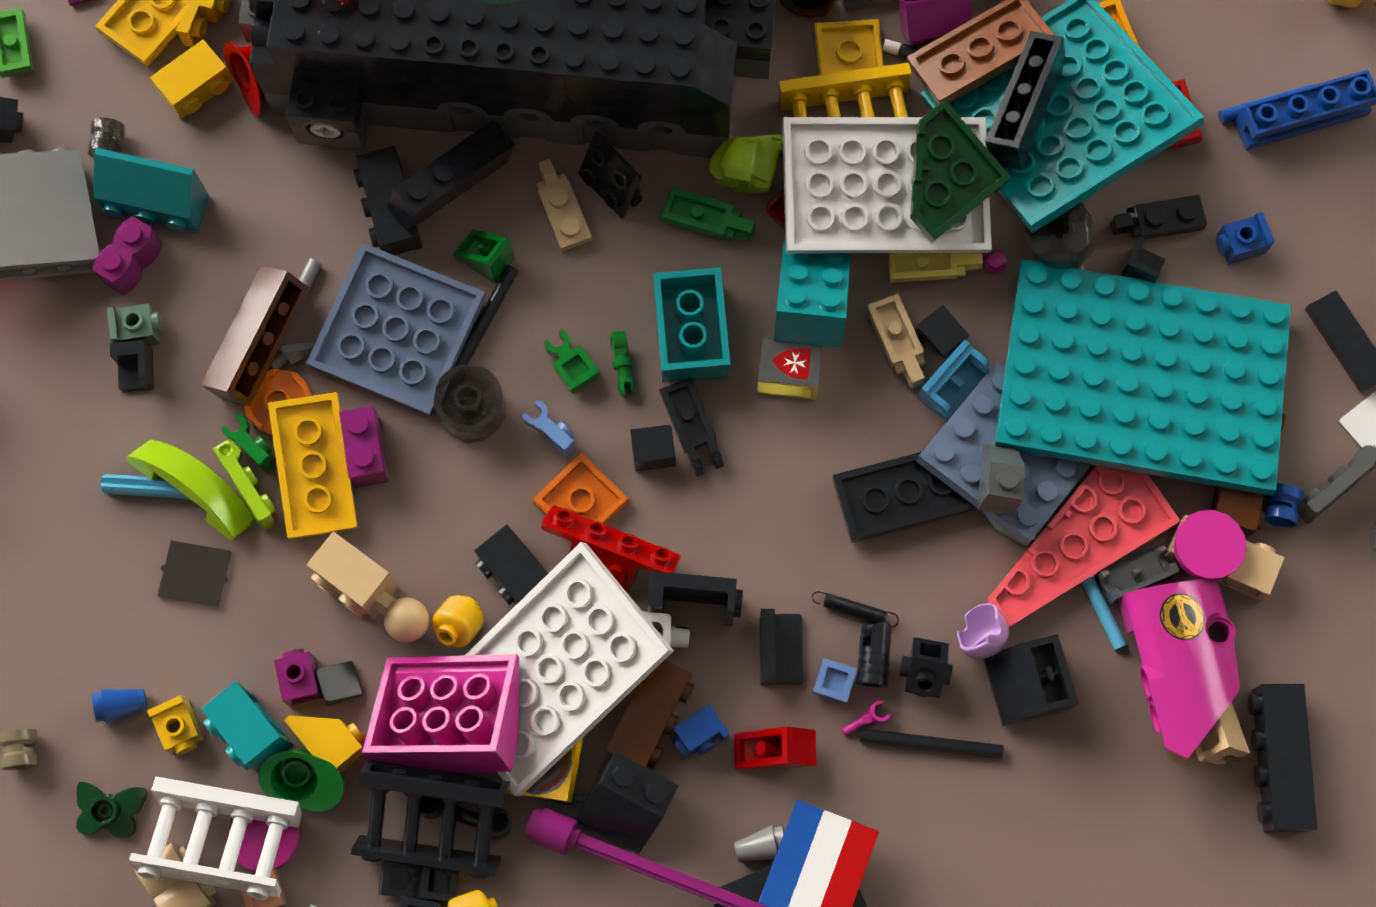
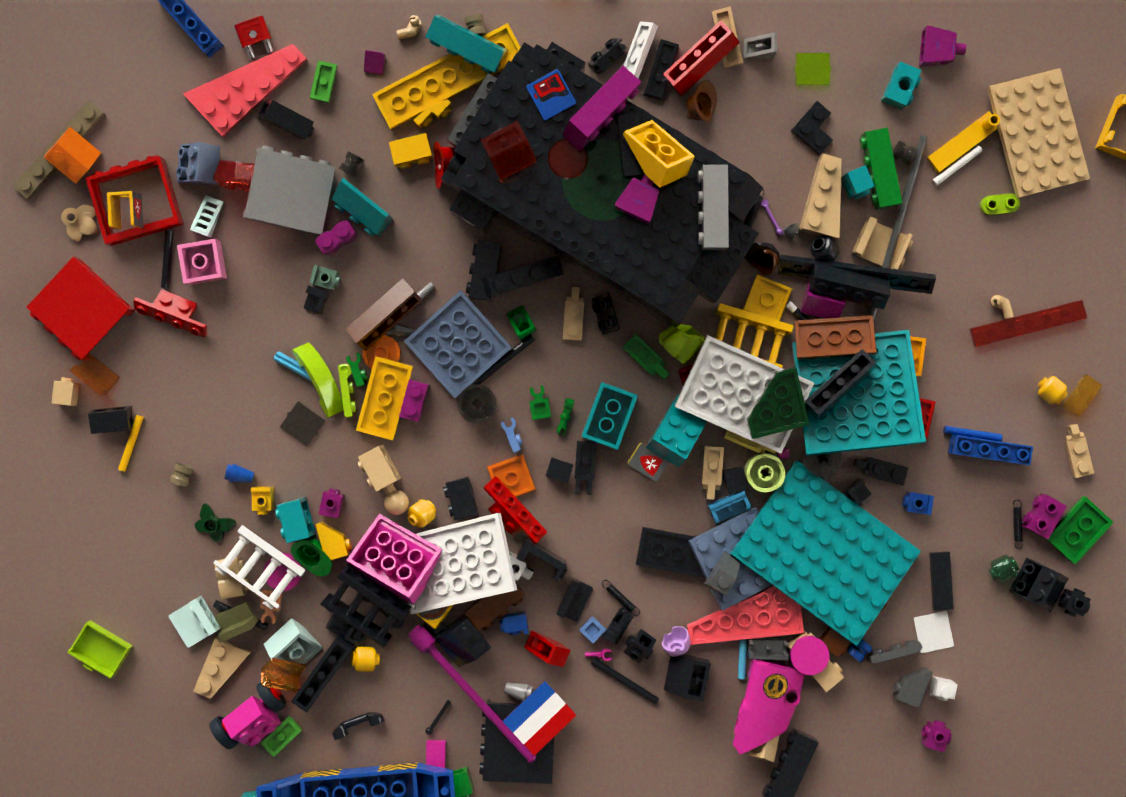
camera: 25 degrees right, 15 degrees up
(338, 682) = (350, 514): slope -> none
(998, 297) = (773, 466): none -> yellowish green brick

